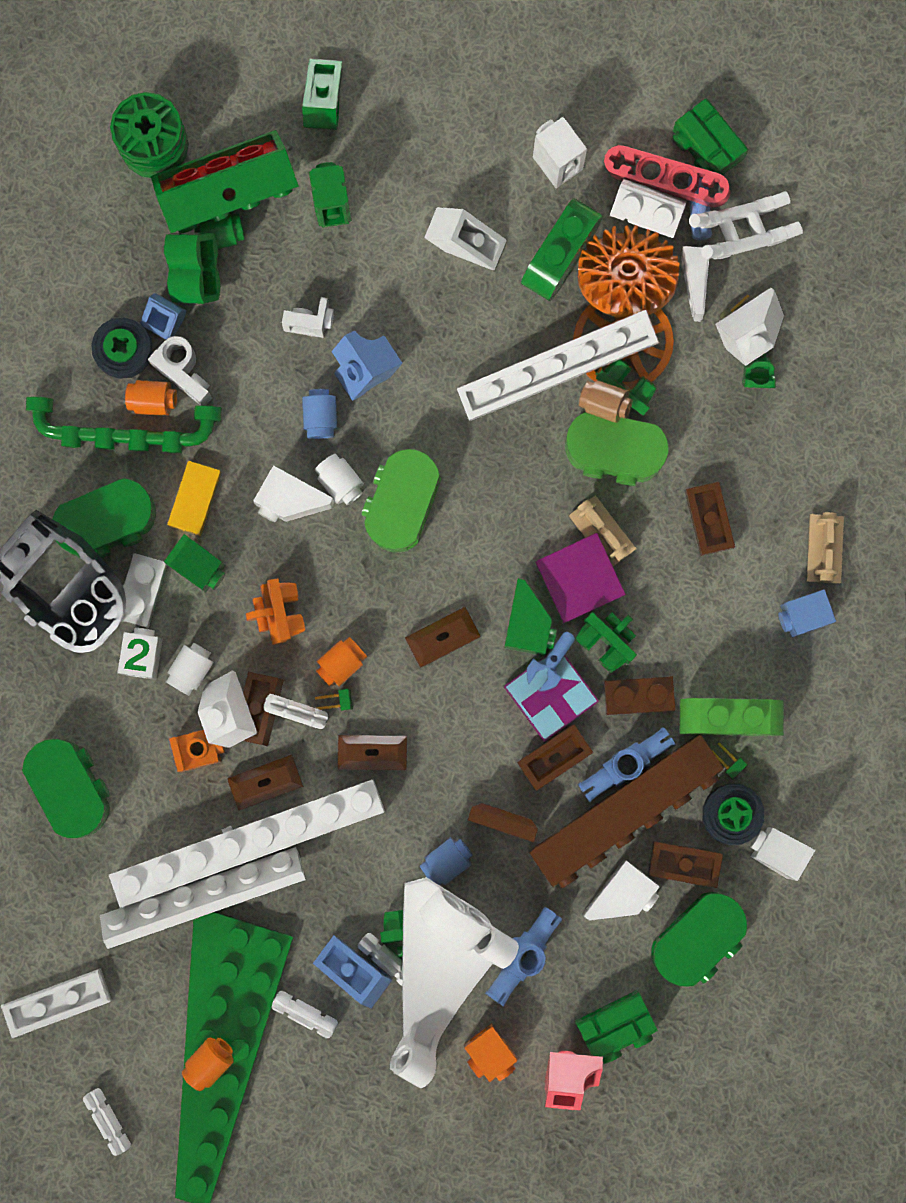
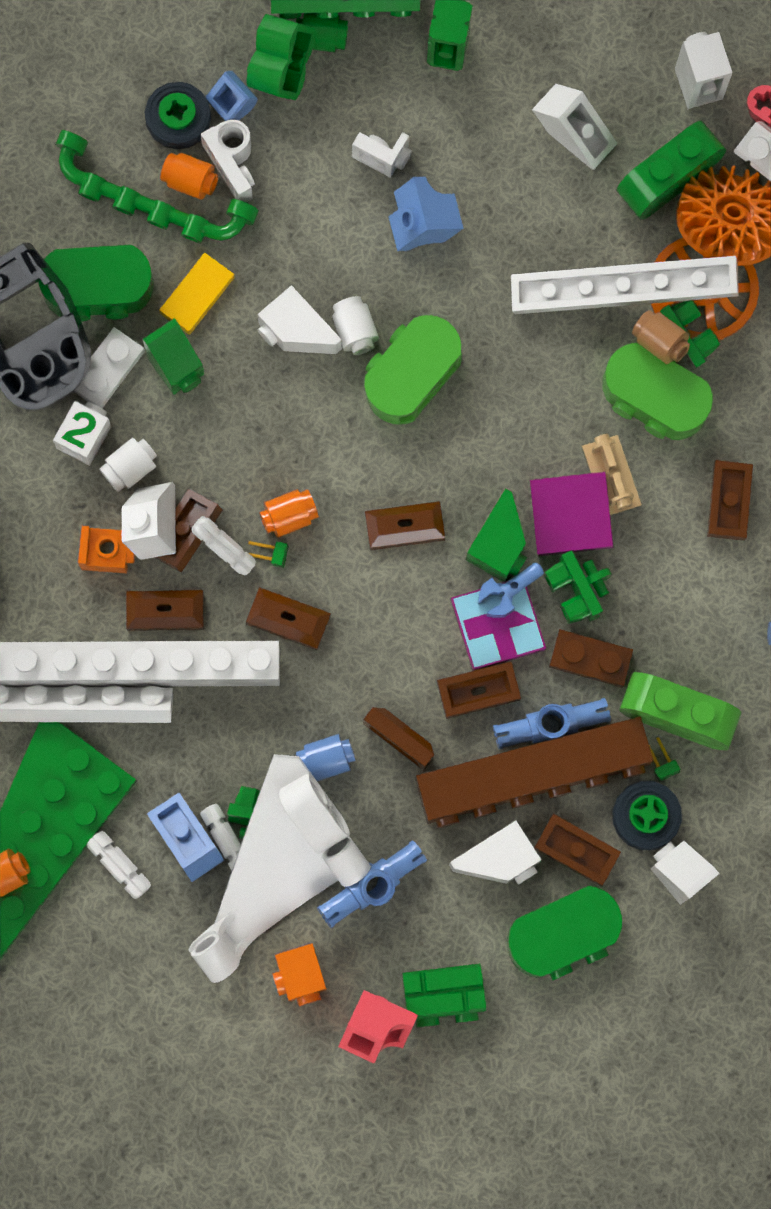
camera: 15 degrees right, 5 degrees down
(273, 611) = (239, 453): orange hips -> none
(319, 414) = (358, 252): medium blue brick -> none

